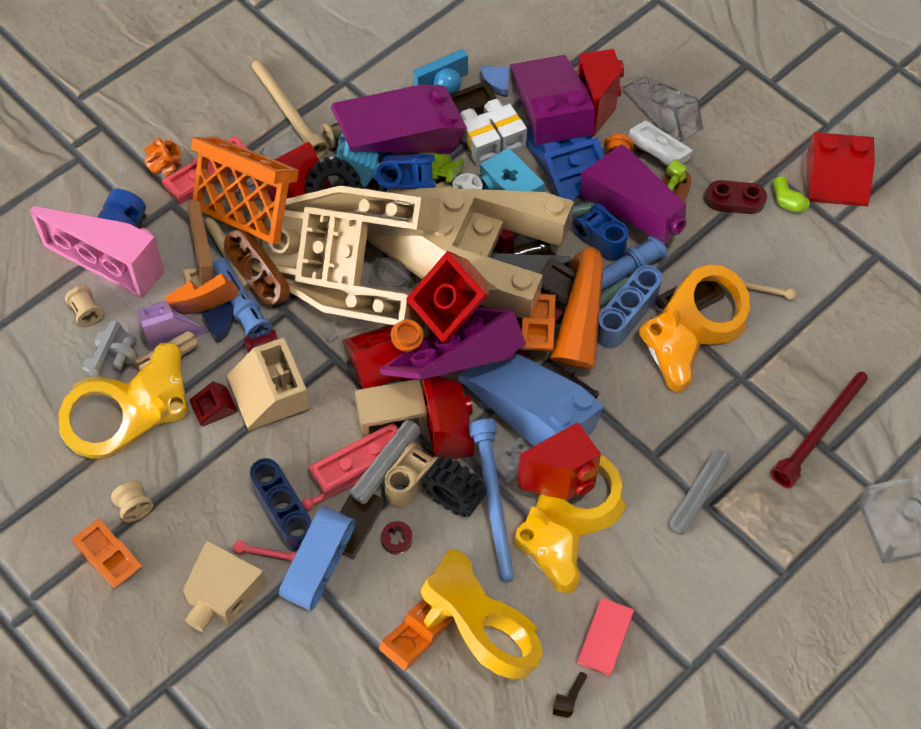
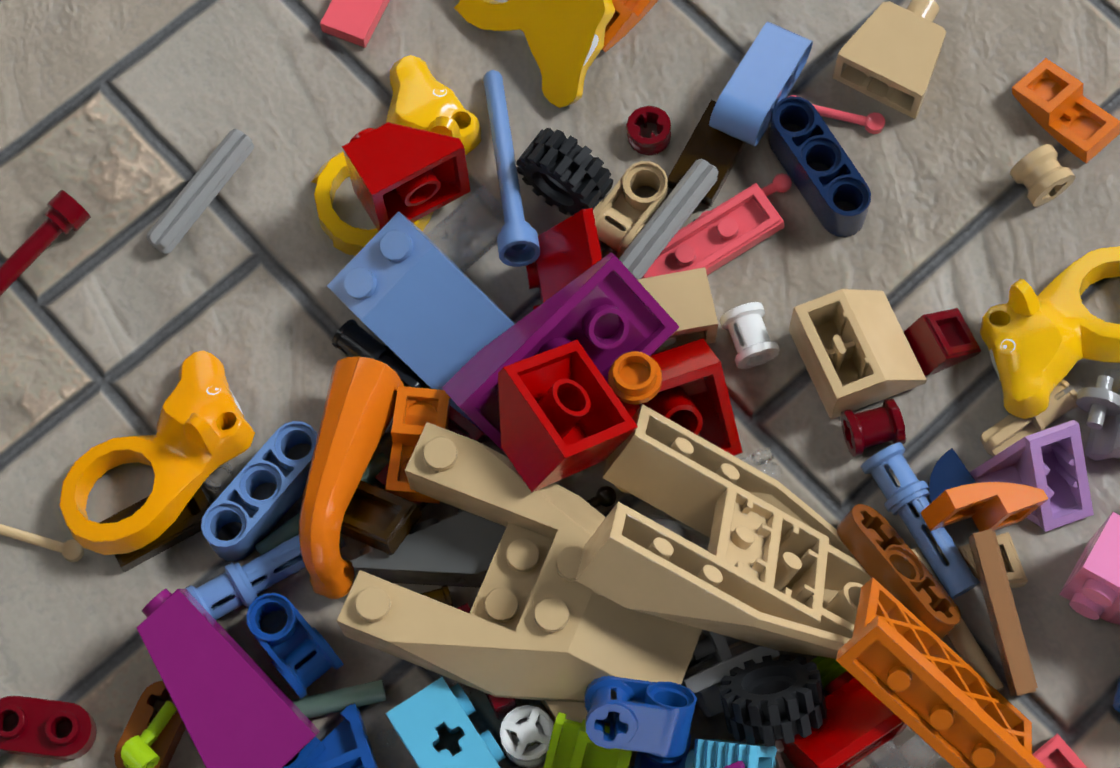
camera: 175 degrees left, 10 degrees up
(334, 398) = (749, 335): none -> white bush

